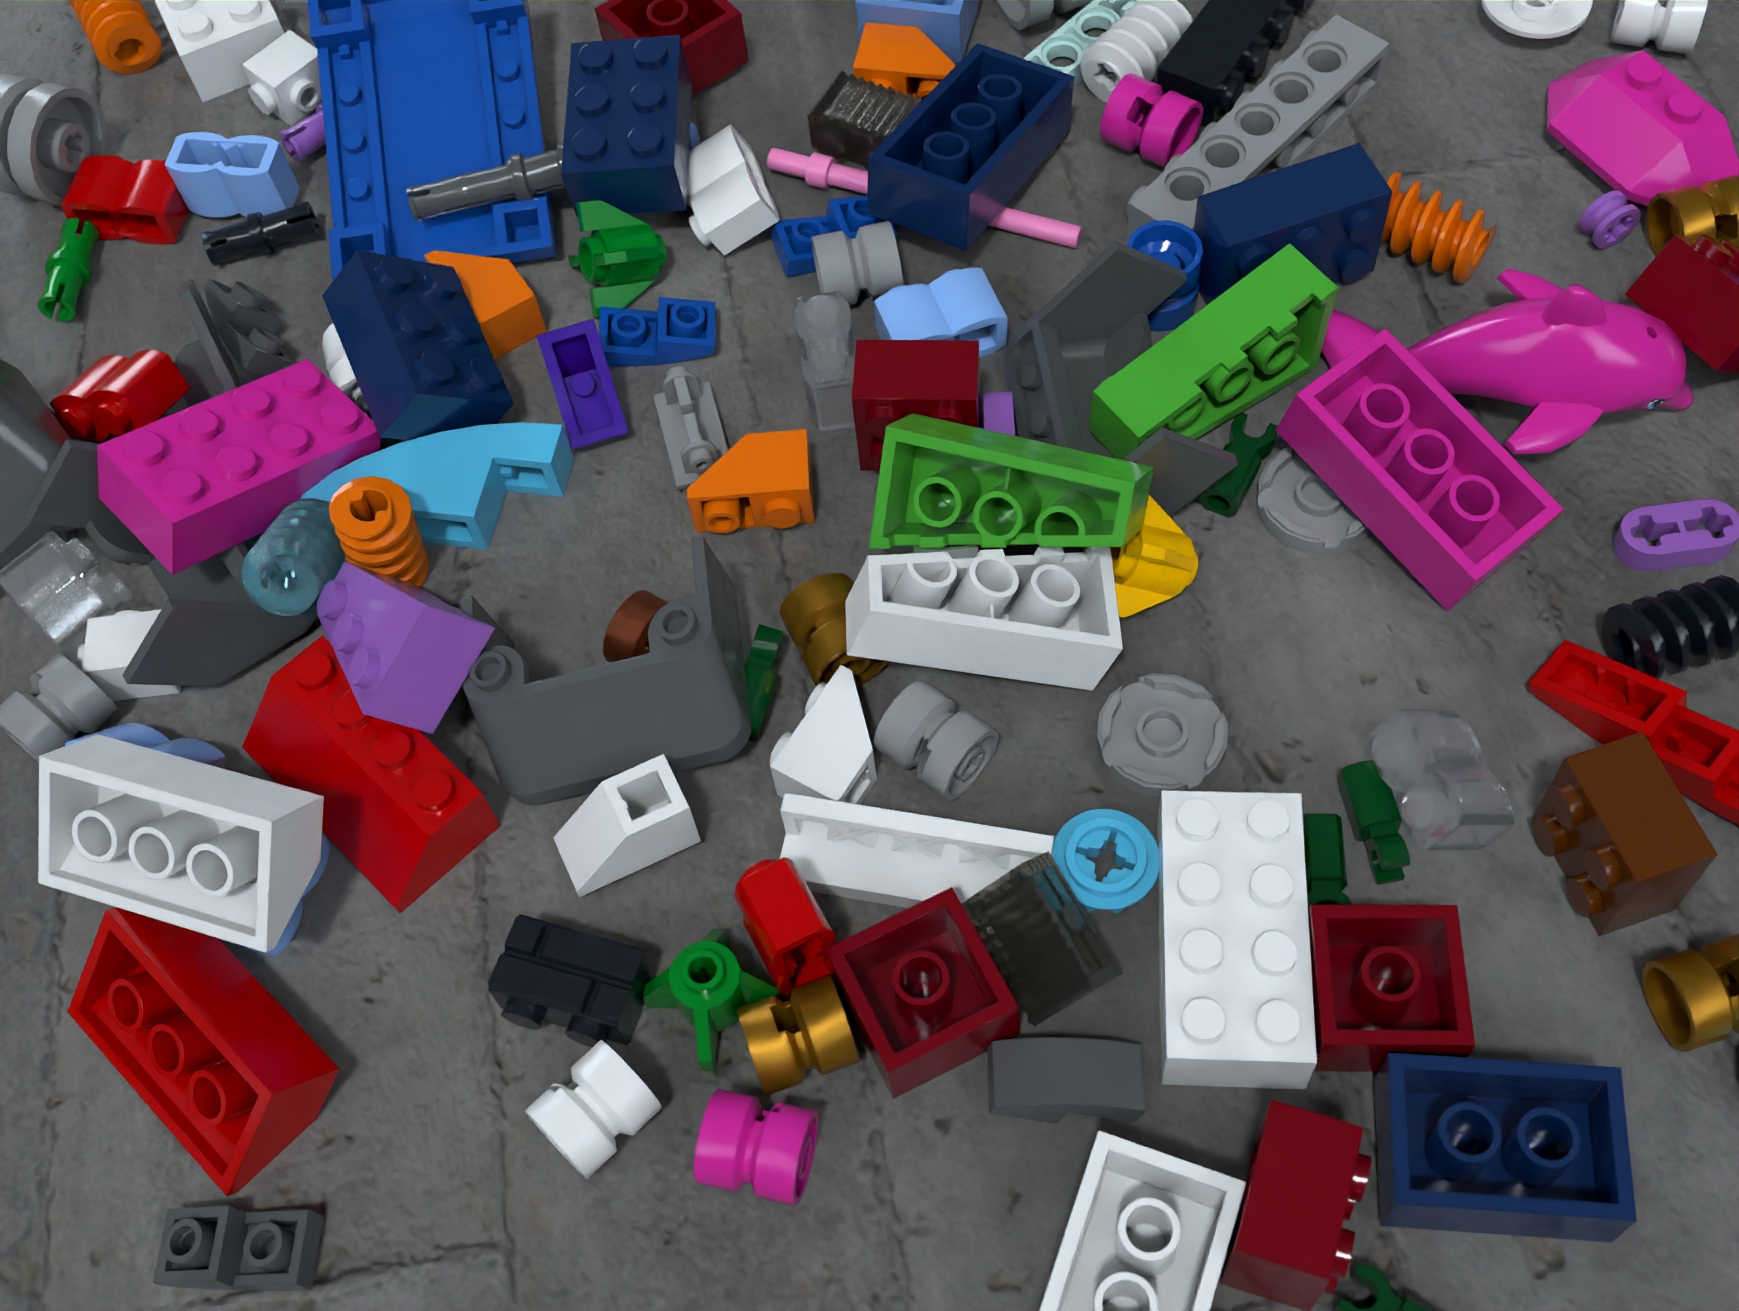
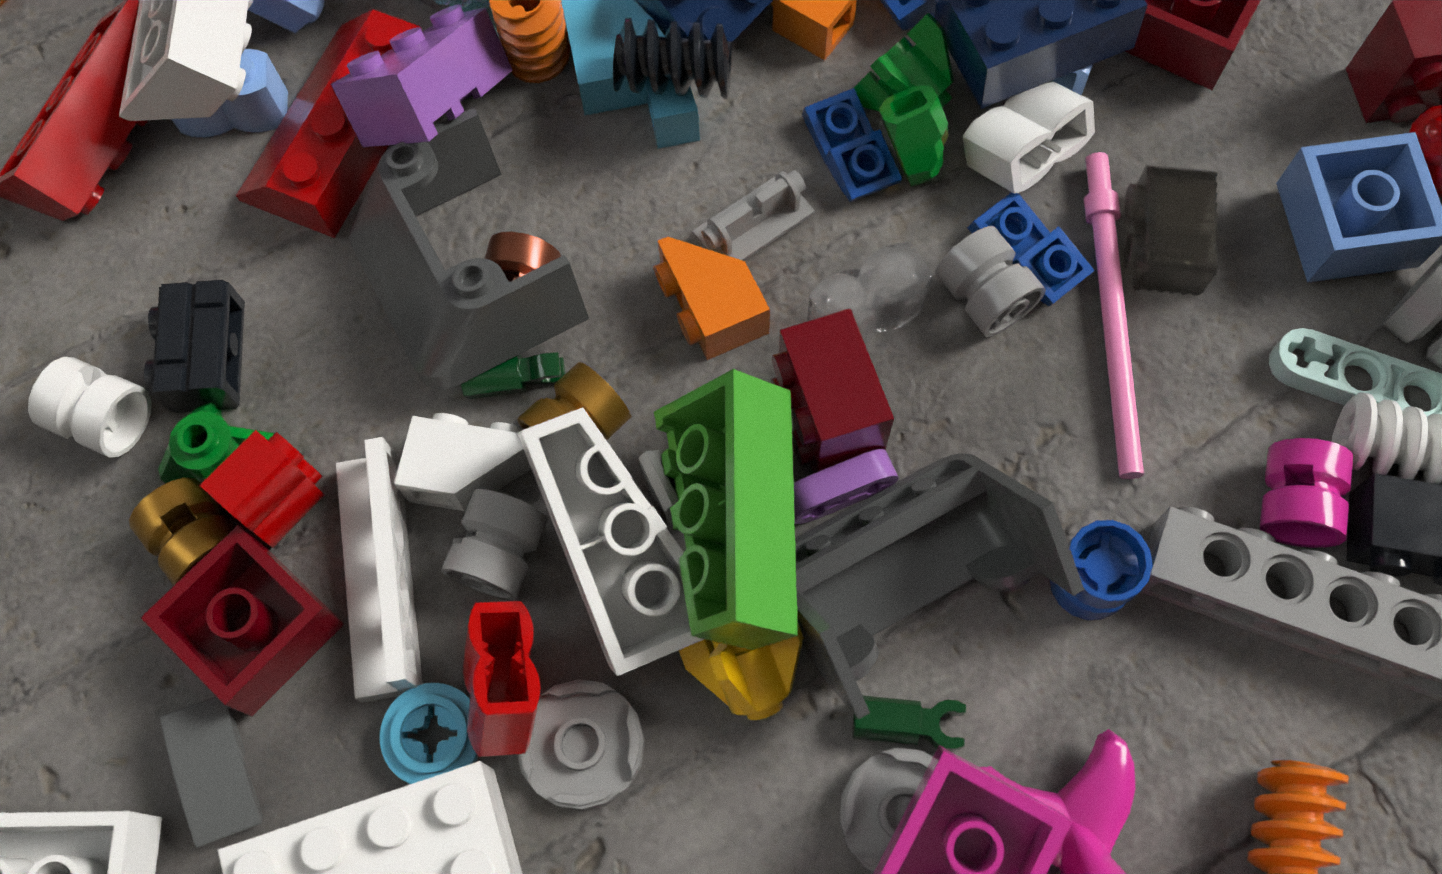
camera: 65 degrees right, 10 degrees up
(505, 411) = (672, 59): none -> black piece
(582, 384) = (758, 103): dark purple slope -> none
(626, 826) = (341, 333): white slope -> none
(681, 265) = (916, 131): none -> green rock
(756, 1146) = (87, 541): dark pink wheel -> none
(900, 59) = (1258, 229): orange slope -> none
(949, 308) = (960, 380): light blue brick -> none
(969, 146) = (1176, 326): dark blue brick -> none
(1041, 938) = (315, 704): clear smoke brick -> none
(1082, 757) = (500, 678): none -> red brick
(1221, 358) = (1005, 660): bright green wedge -> none
(1322, 206) = (1206, 685): dark blue brick -> none

